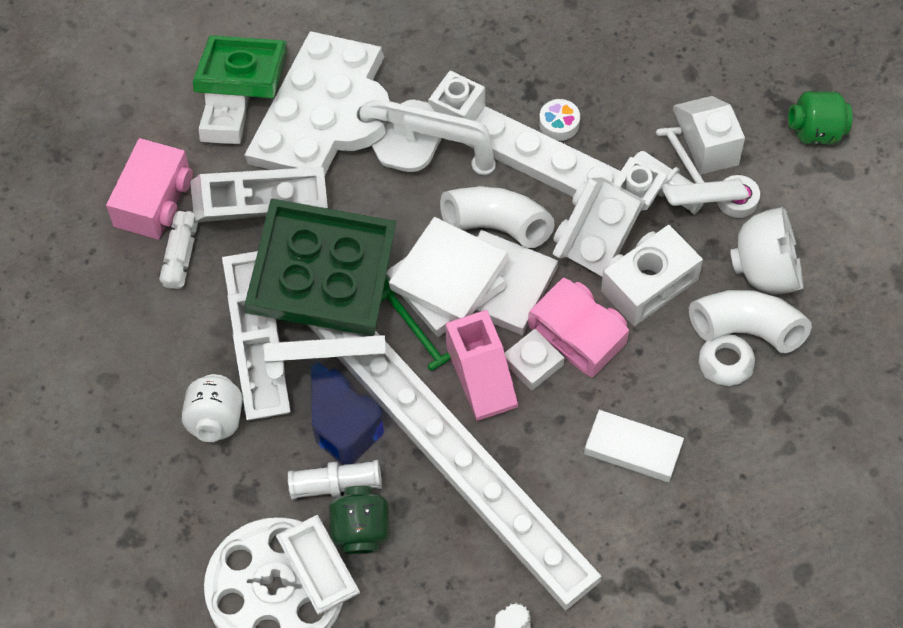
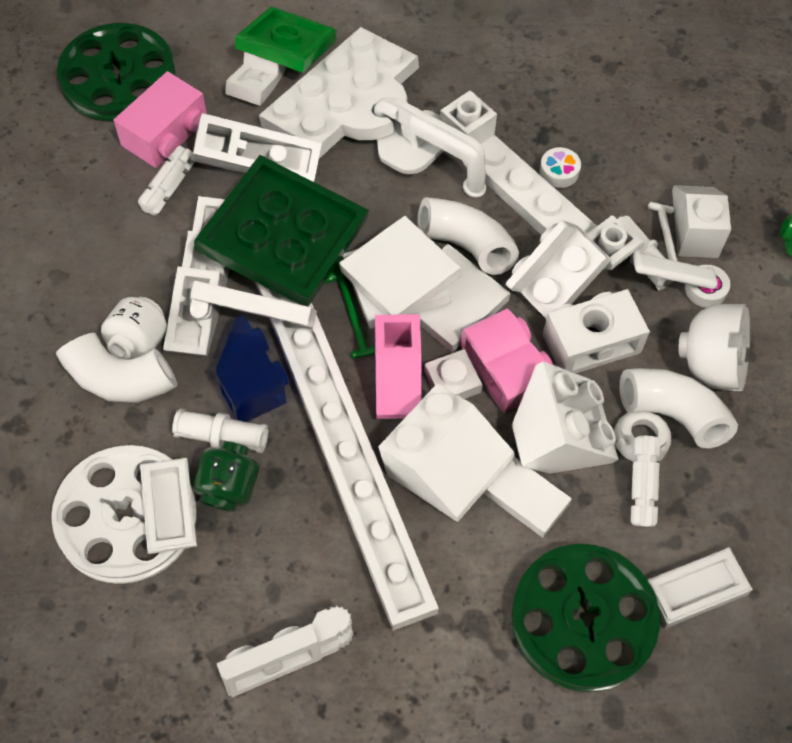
camera: 15 degrees right, 0 degrees up
(69, 164) = (100, 68): none -> dark green wedge
(212, 461) = (116, 377): none -> white cylinder
(555, 432) = (445, 452): none -> white slope
(652, 370) = (562, 422): none -> white slope
(726, 560) = (572, 634): none -> dark green wedge
(745, 400) = (645, 481): none -> white axle
(821, 482) = (699, 587): none -> white tile

